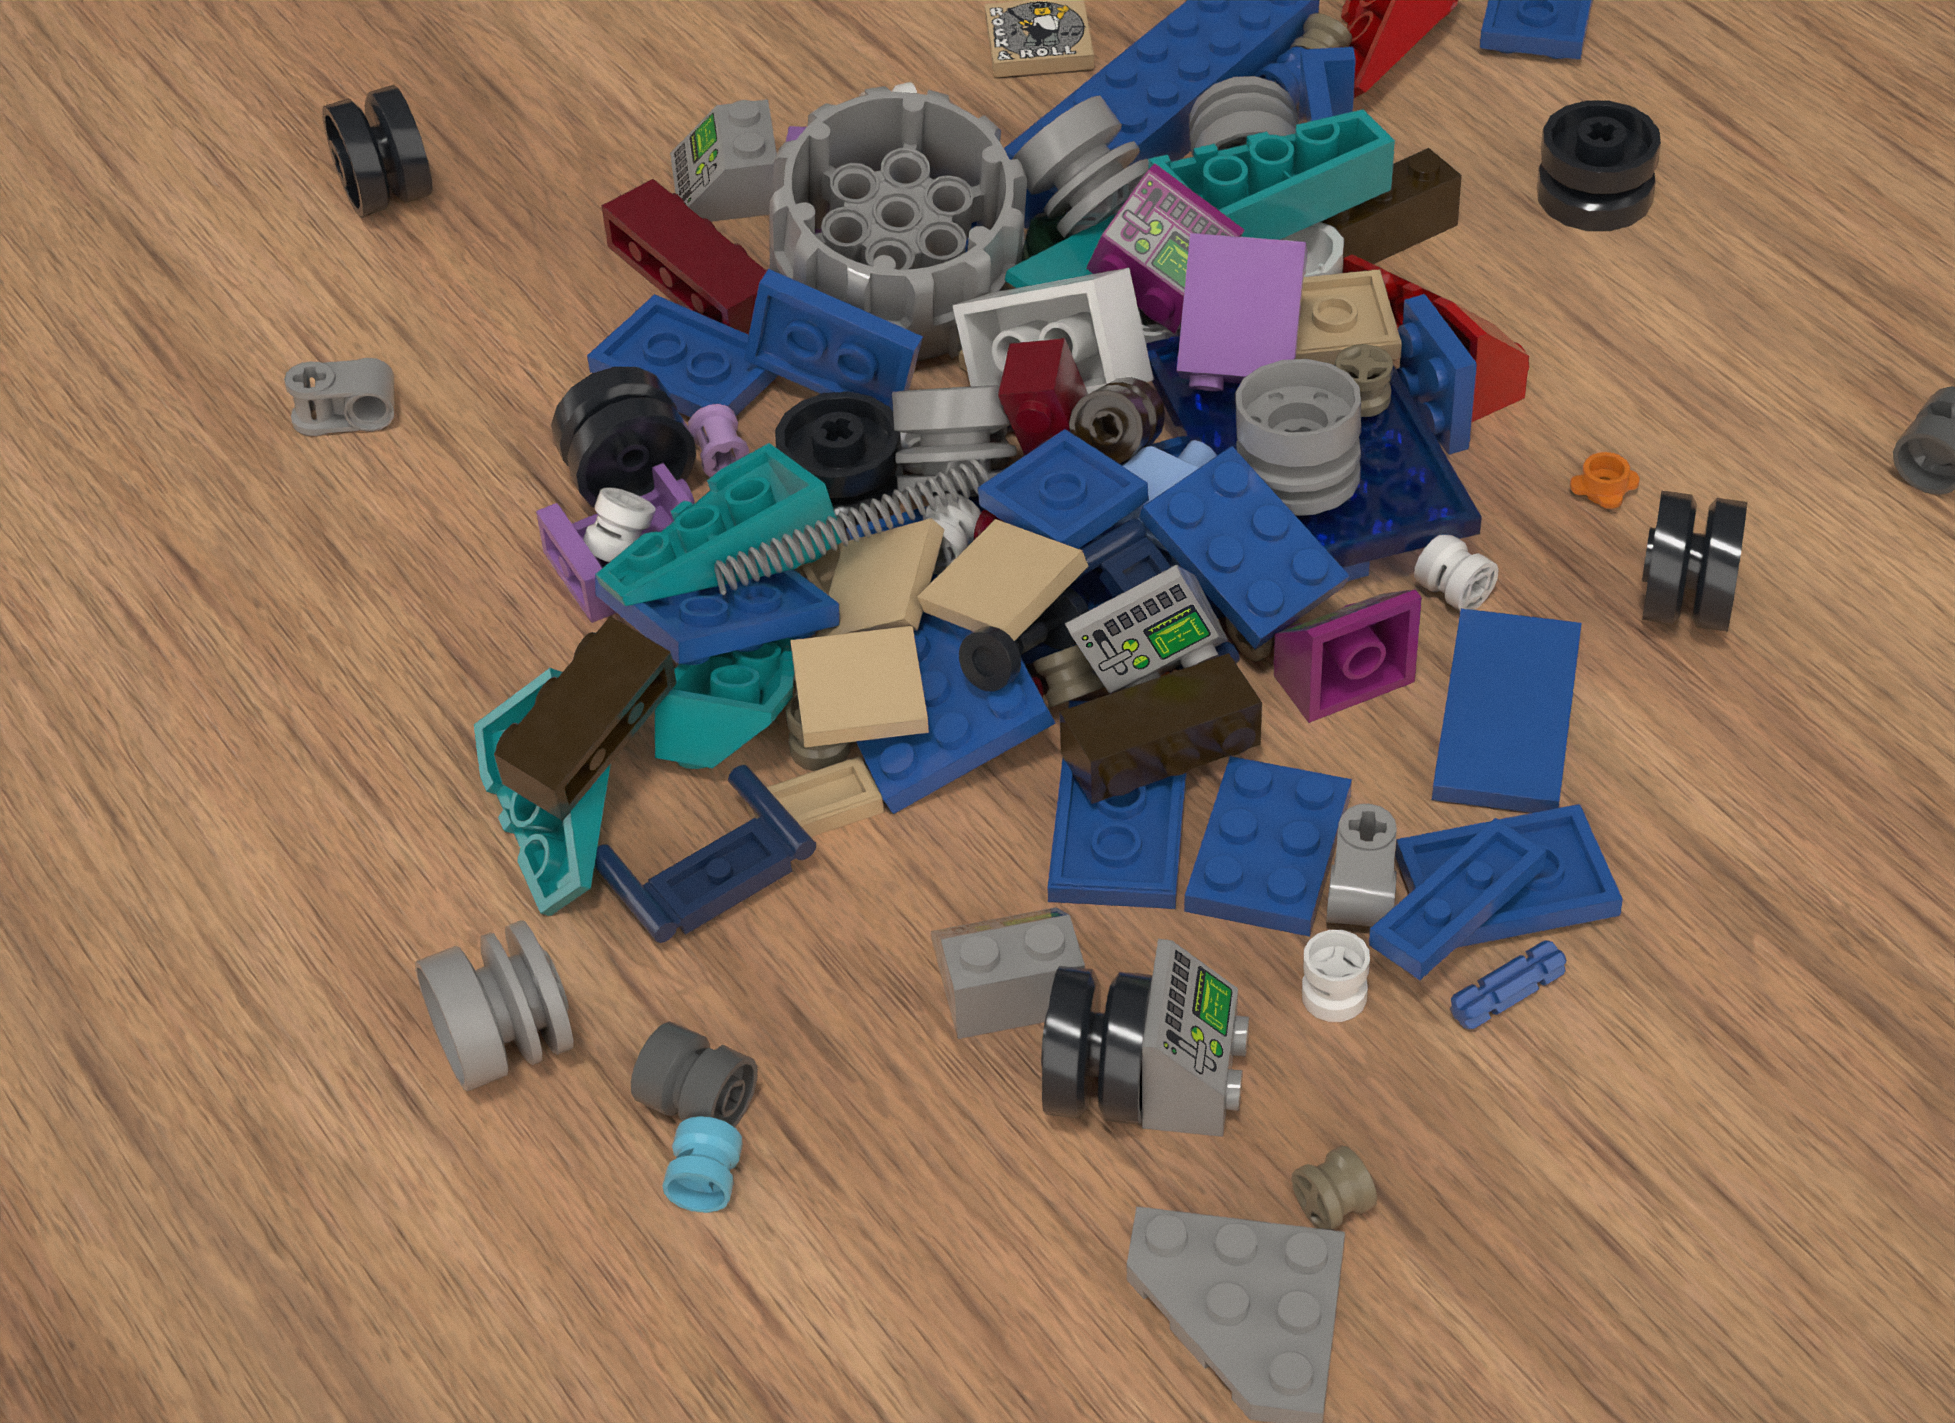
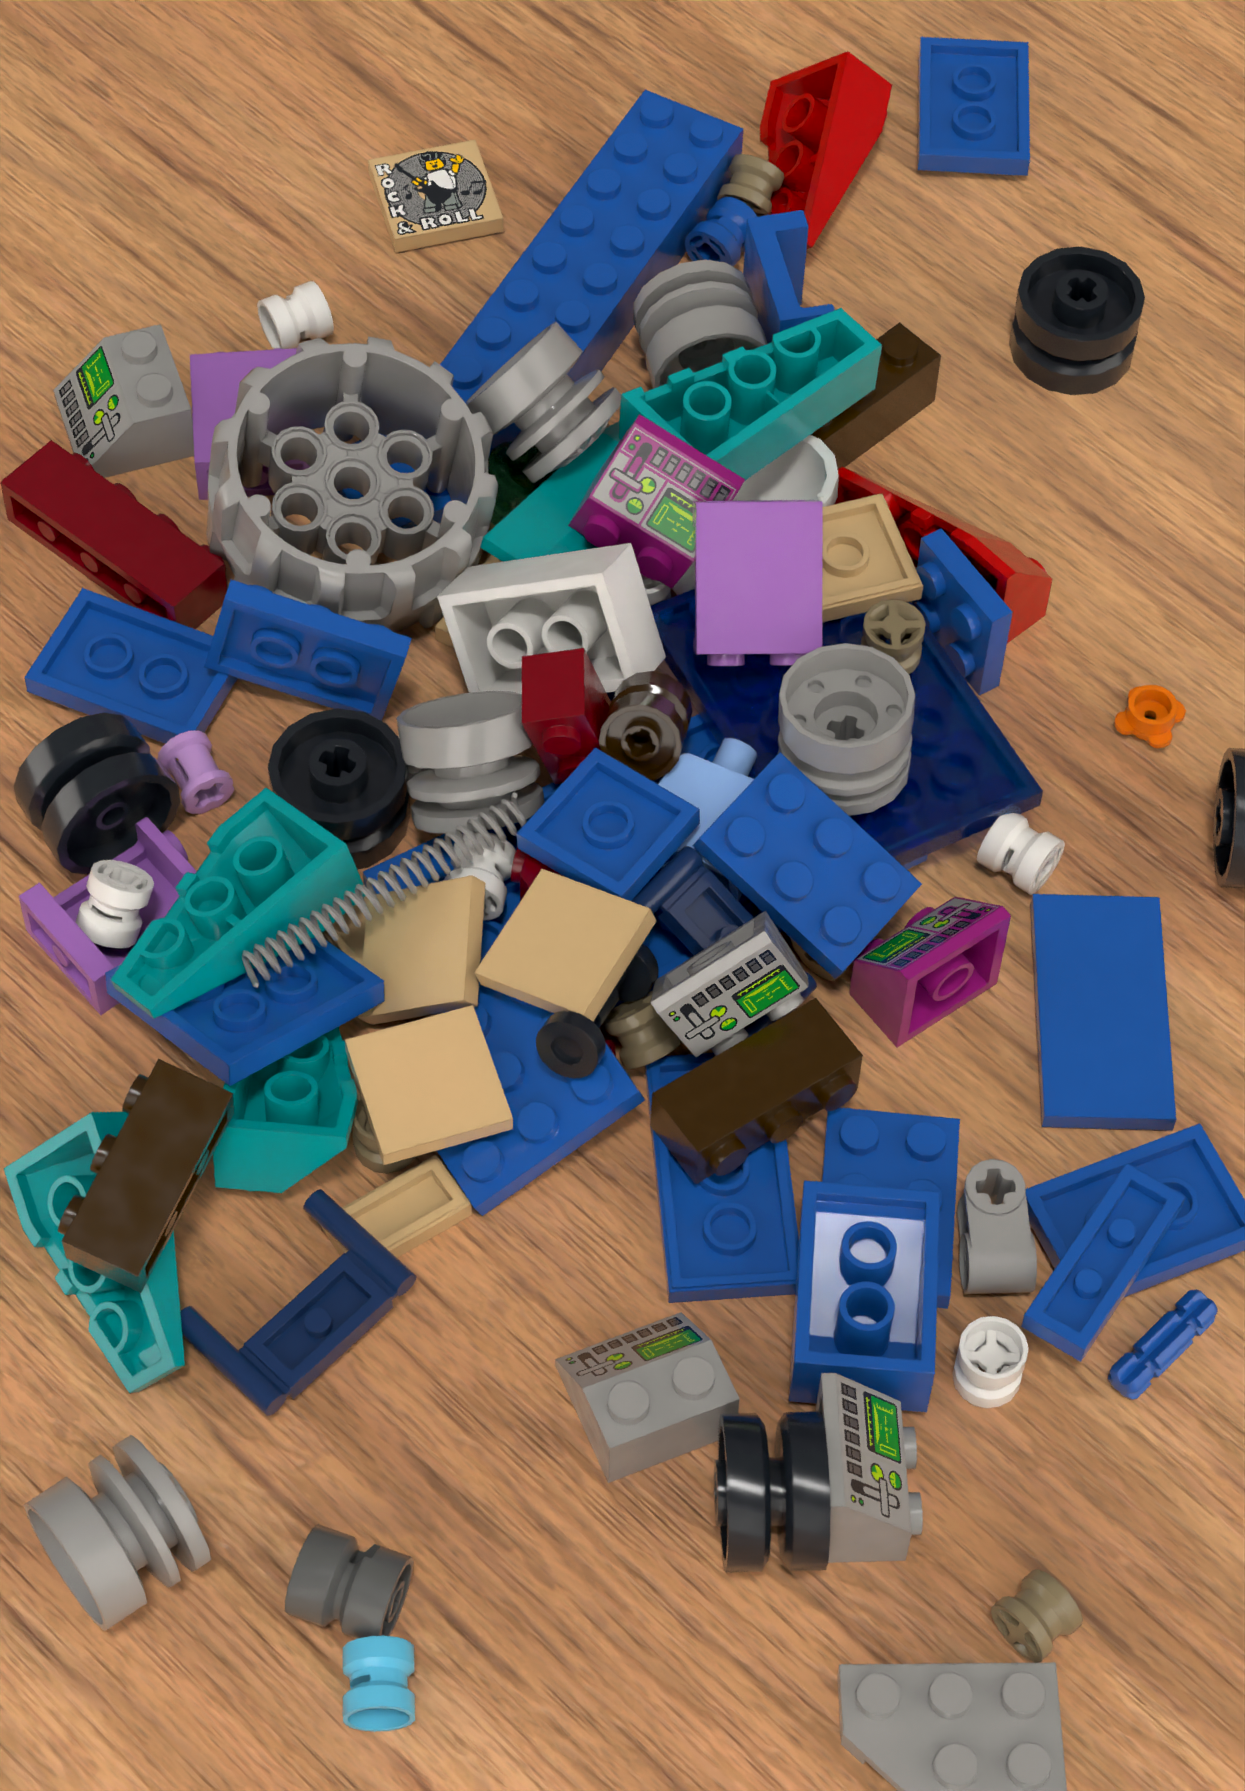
camera: 15 degrees left, 10 degrees up
(1229, 894) = (866, 1291): none -> blue slope

